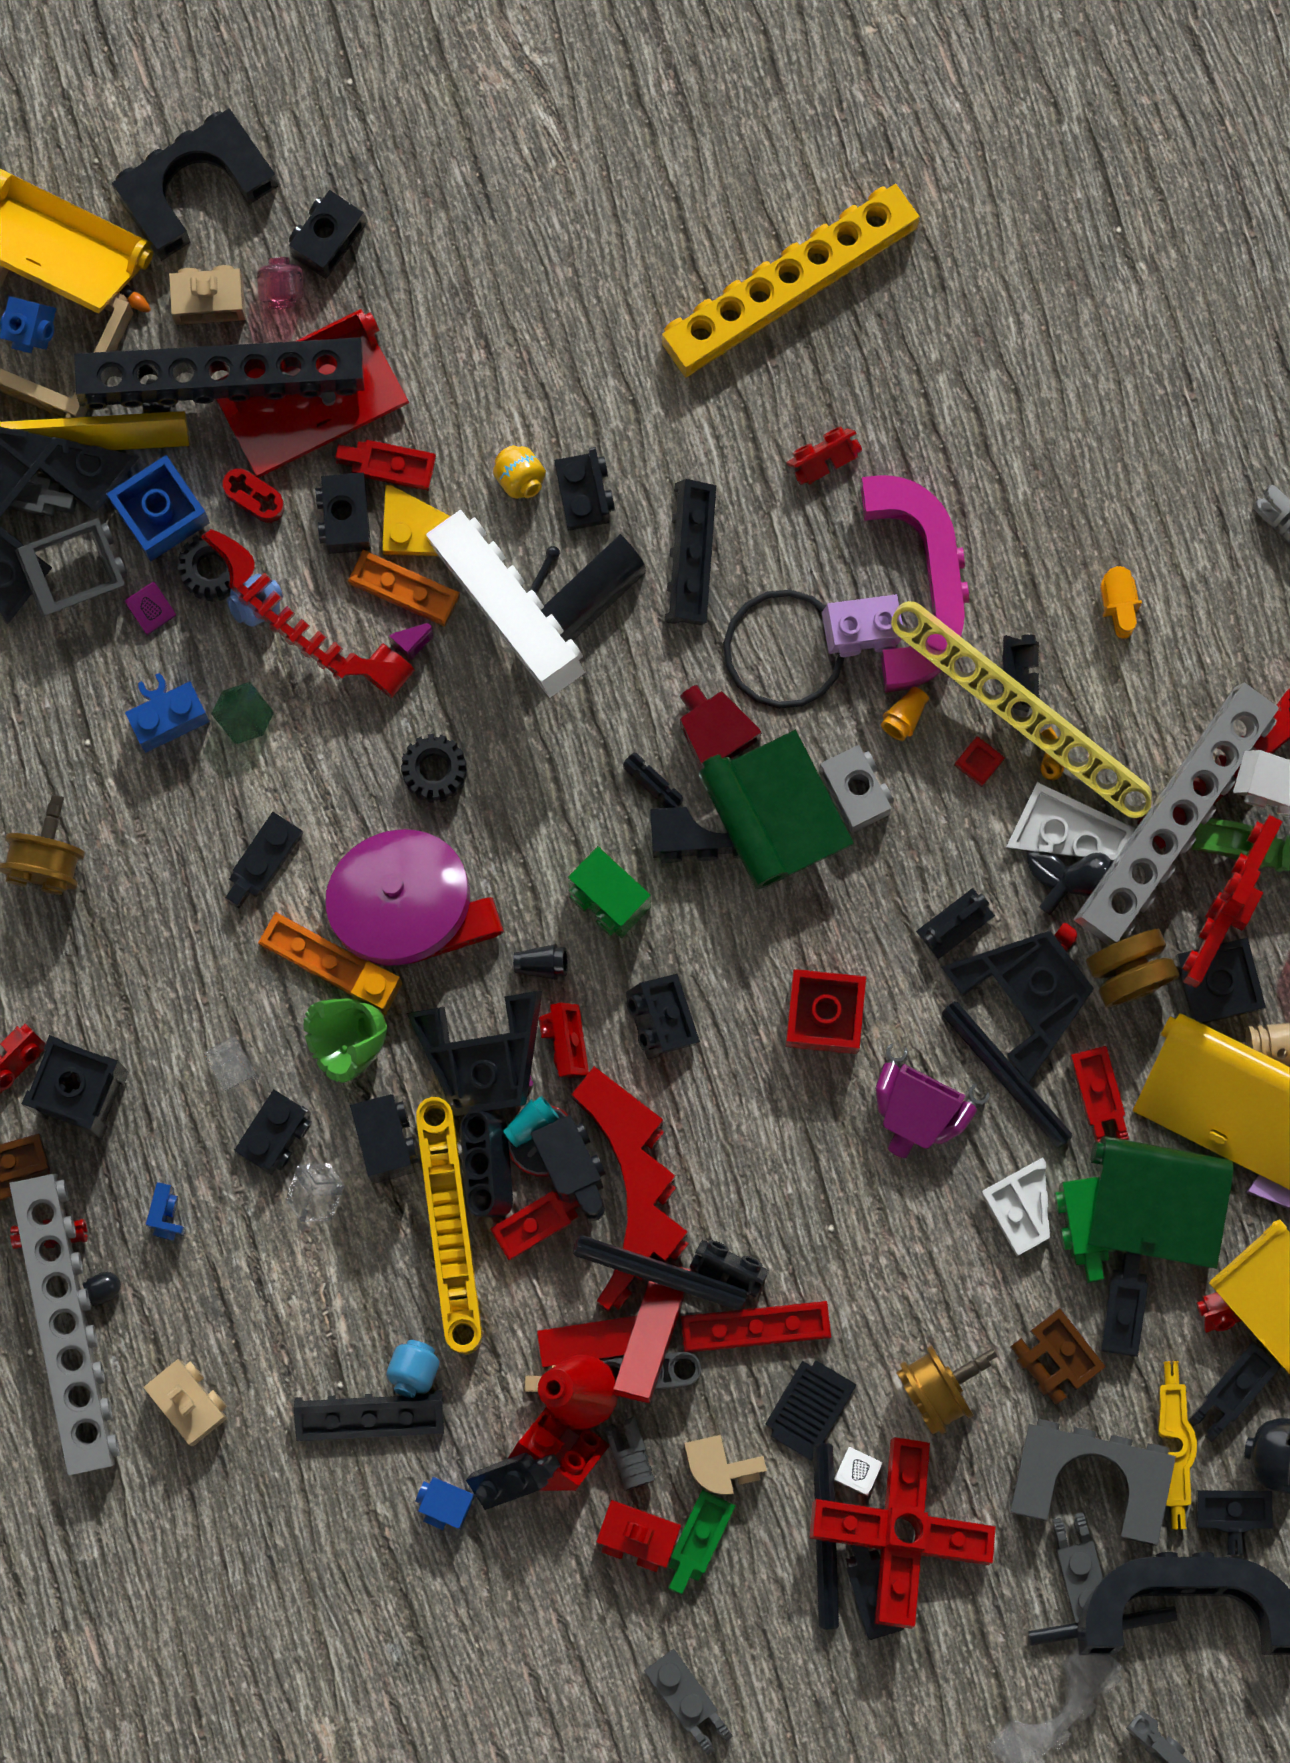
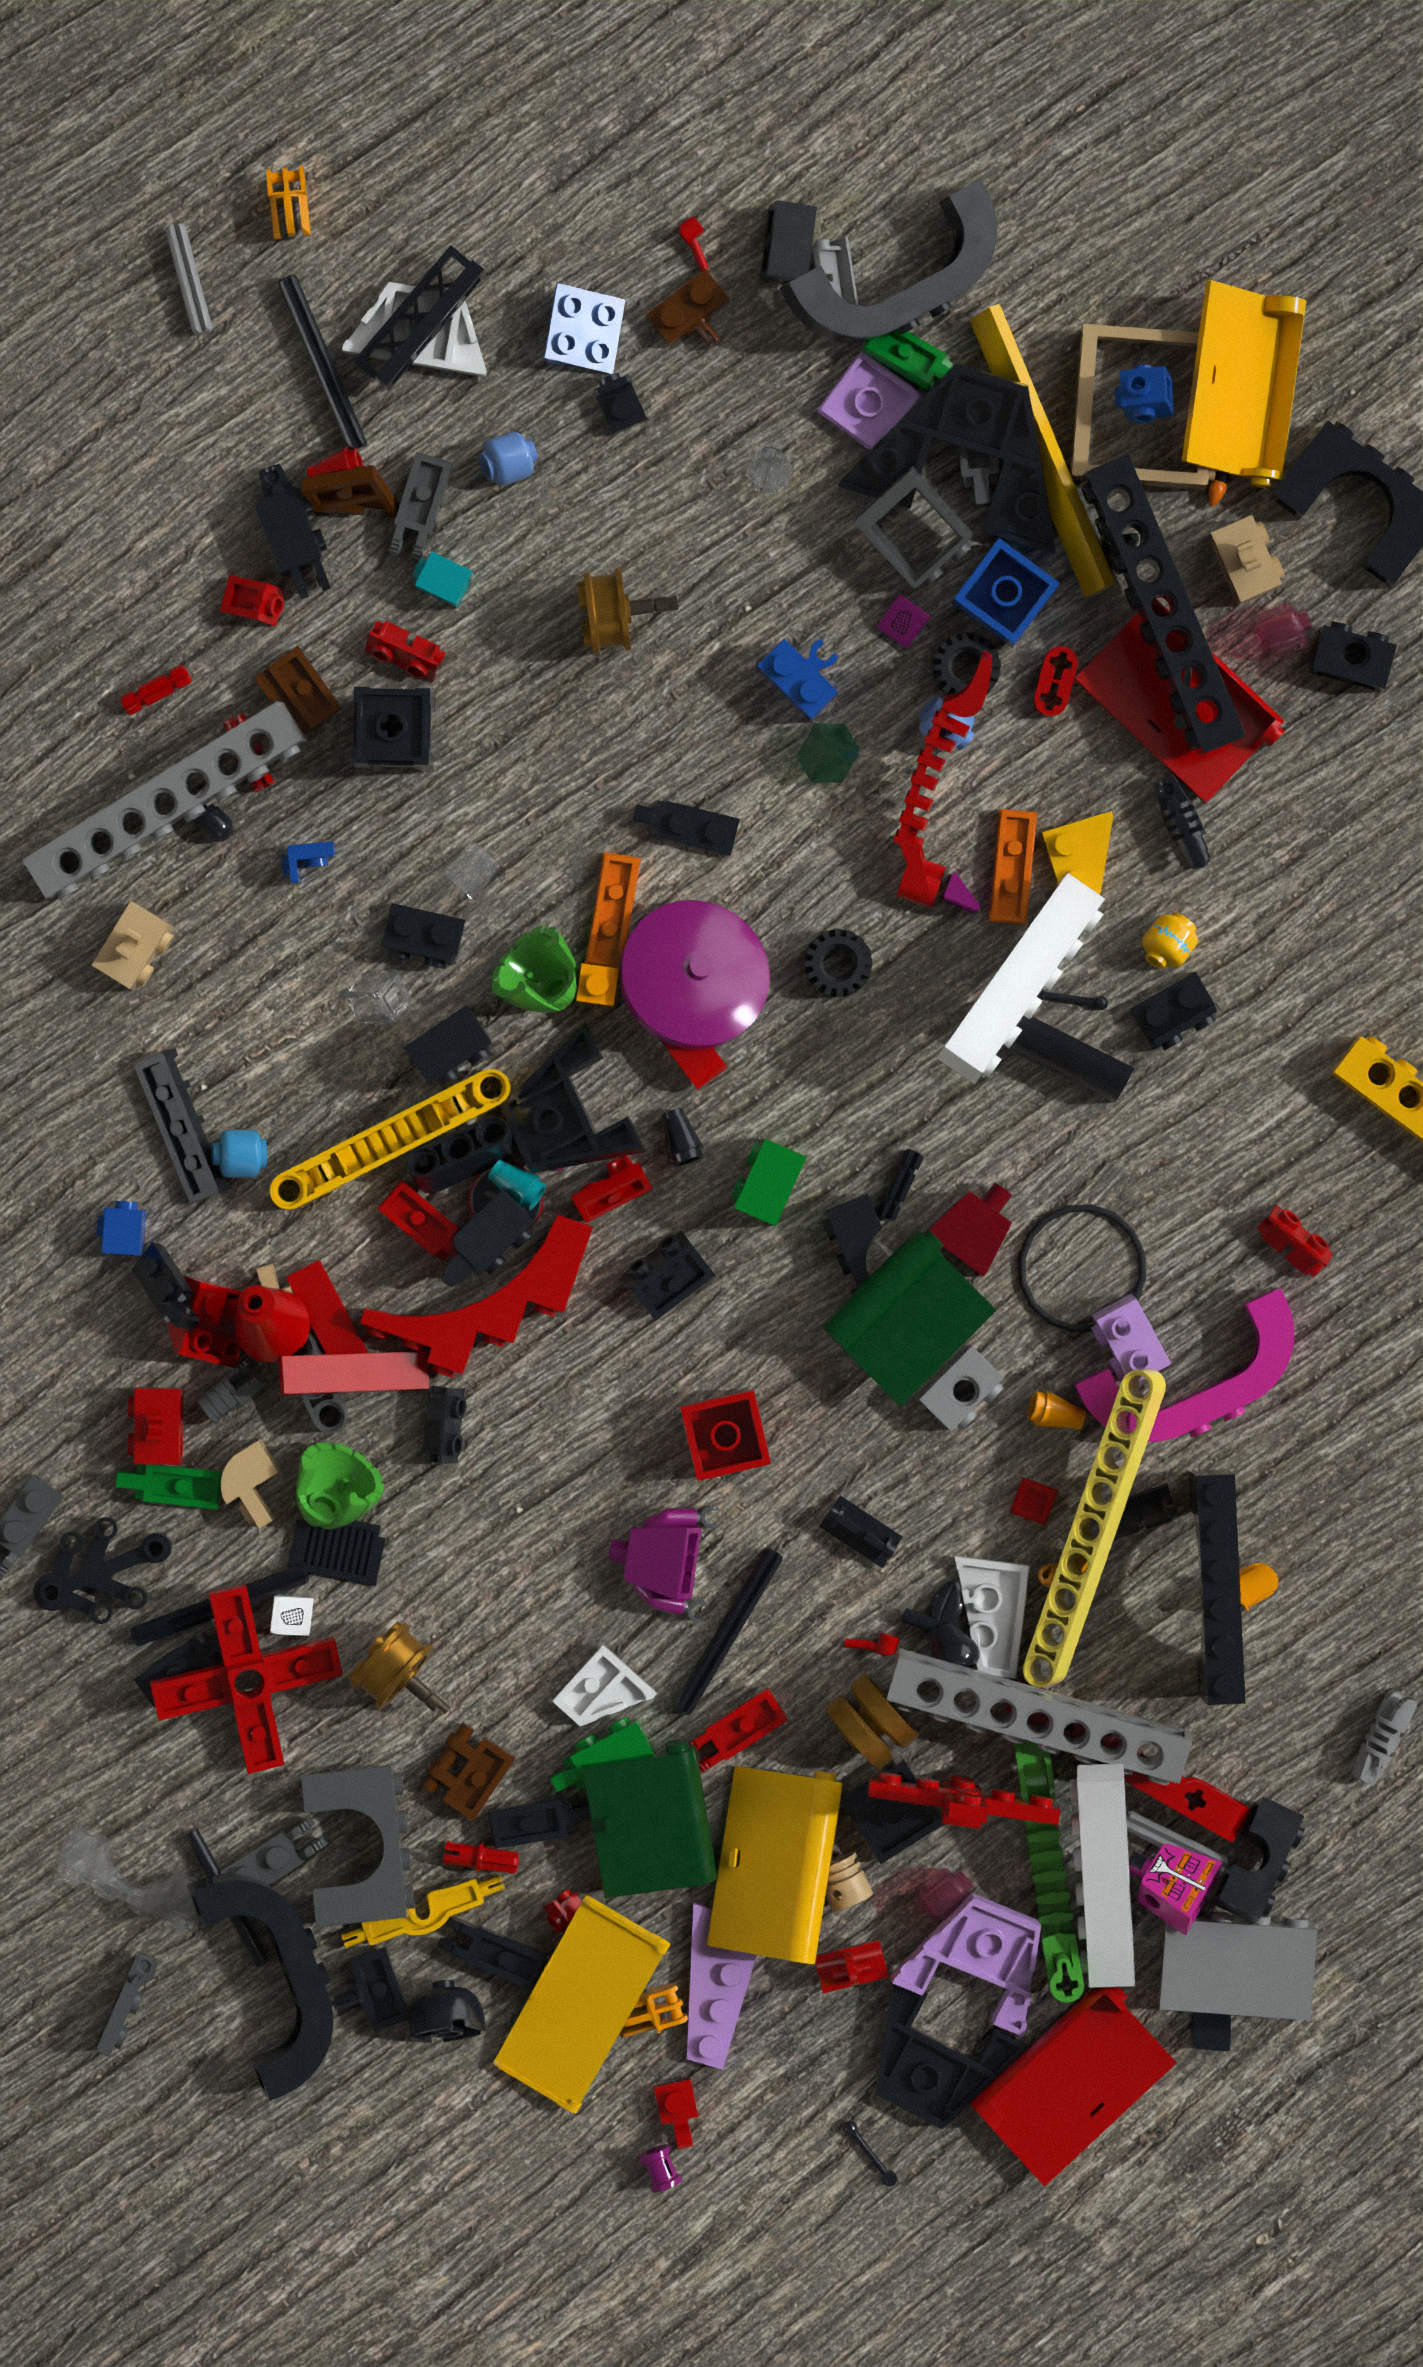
camera: 70 degrees right, 10 degrees up
(347, 492) = (1090, 780): black brick -> none
(389, 463) = (1134, 807): red hinge -> none
(417, 426) = (1182, 821): none -> black hinge
(659, 1272) = (412, 1360): black axle -> none
(691, 552) = (1148, 1142): black hinge -> none
(752, 1385) = (335, 1485): none -> bright green hair
(756, 1327) = (398, 1470): red tile -> none
(757, 1643) = (96, 1573): none -> black plant
(1041, 985) = (828, 1634): black wing -> none
(1142, 1372) = (481, 1858): none -> red axle
(1181, 636) = (1221, 1651): none -> black arch

